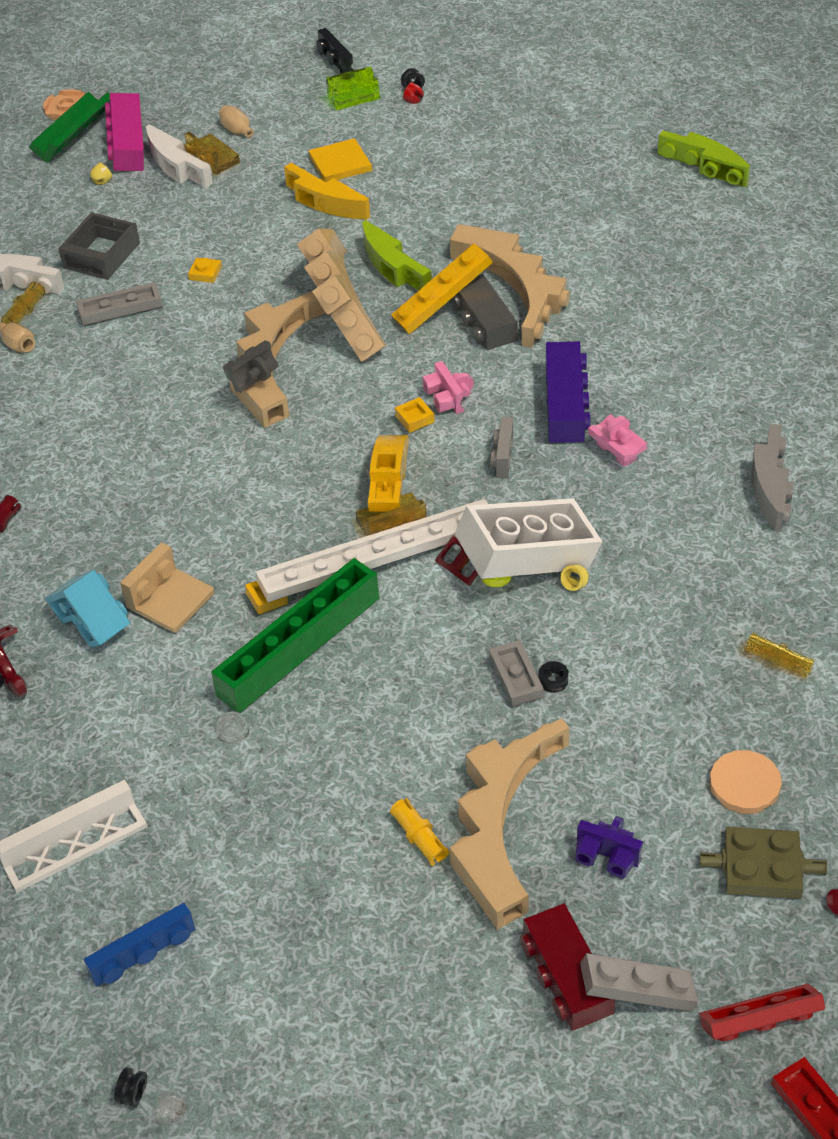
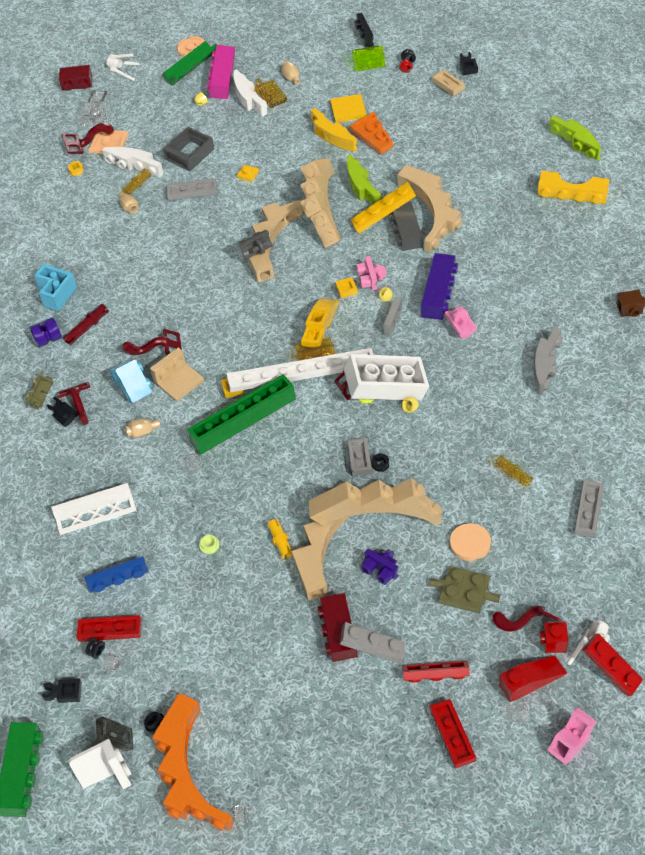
camera: 15 degrees right, 5 degrees up
(75, 560) = (164, 341): none -> dark red piece
(123, 685) = (141, 427): none -> tan plant
(148, 1045) = (109, 628): none -> red plate
(294, 862) = (209, 544): none -> yellowish green plate
(389, 189) = (372, 133): none -> orange wing
(484, 417) = (387, 294): none -> light yellow hinge
(485, 108) = (448, 82): none -> tan plate
(507, 82) = (468, 65): none -> black plate
(578, 730) = (377, 497): none -> tan arch
(694, 227) = (591, 191): none -> yellow arch

